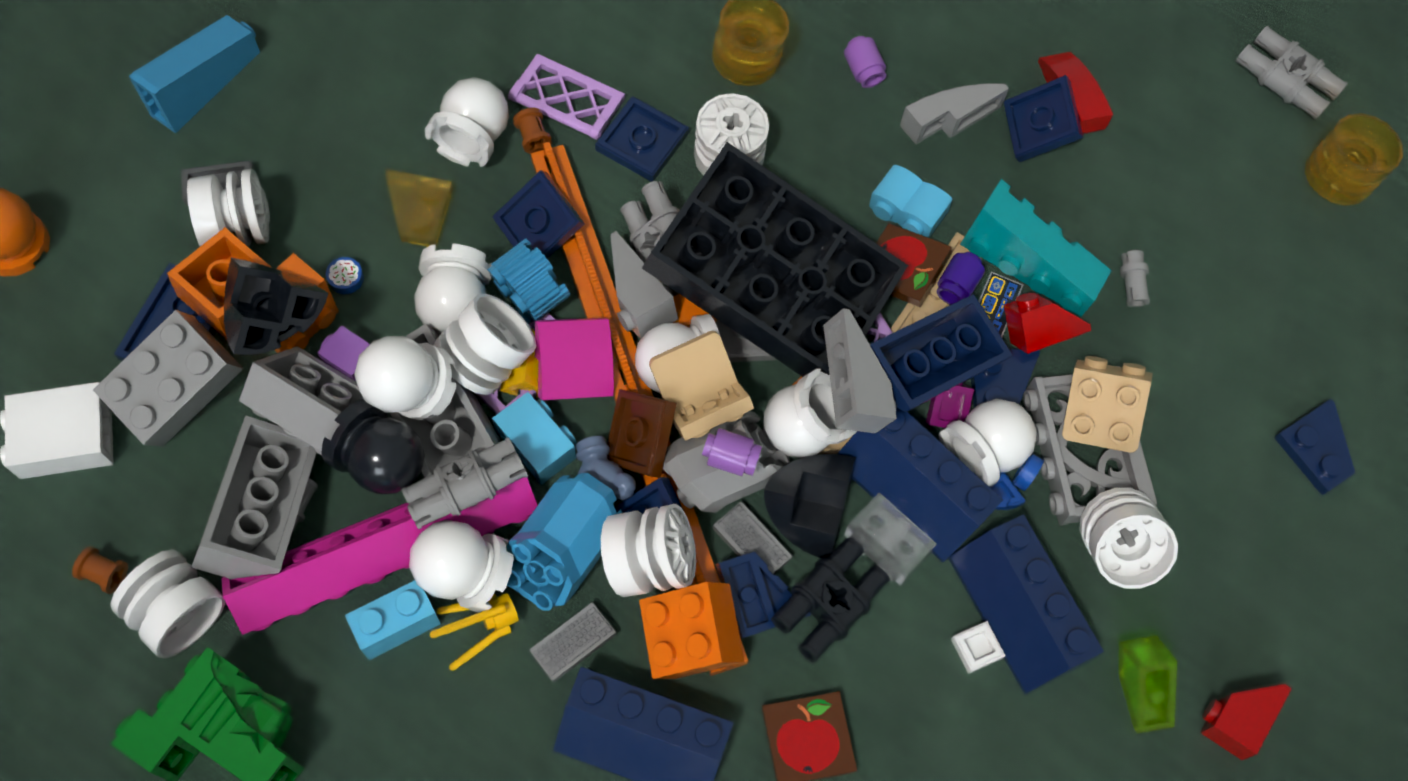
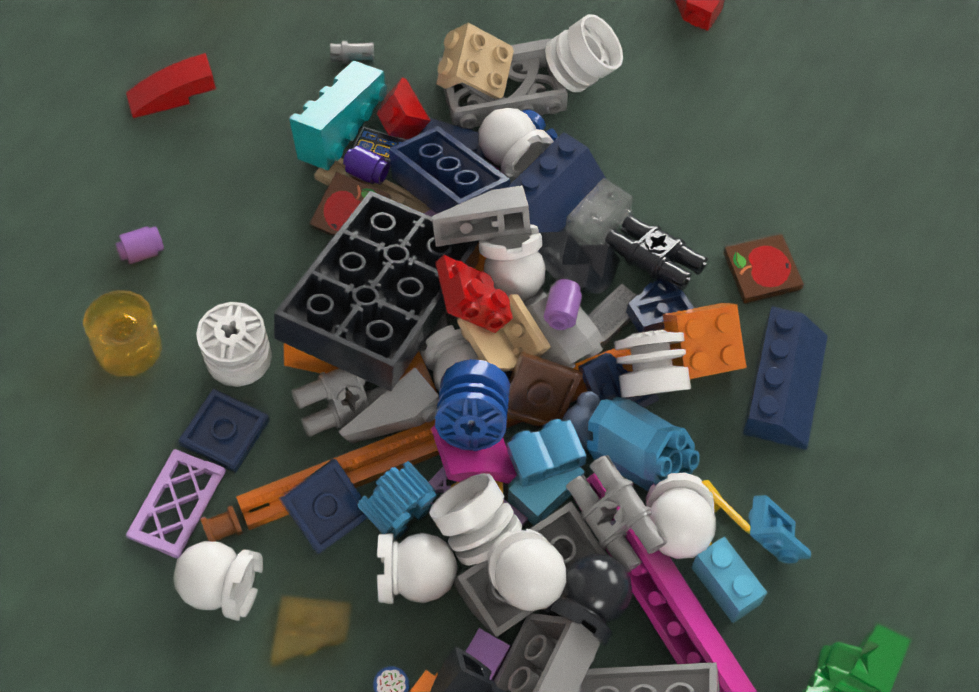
camera: 90 degrees left, 5 degrees down
(436, 677) = (776, 531): none -> dark azure bracket
(557, 426) = (546, 452): none -> dark azure brick
(572, 642) = (719, 441): light grey tile -> none
(613, 345) = (472, 405): none -> blue wheel
(748, 350) = (472, 295): none -> red plate
(910, 201) = (289, 206): medium azure brick -> none
(951, 110) = (195, 177): light grey slope -> none
(978, 647) = (672, 160): white tile -> none
(1025, 604) = (638, 125): dark blue slope -> none
(1043, 119) = (204, 107): dark blue tile -> none
(1148, 683) = (681, 53): clear neon green slope -> none

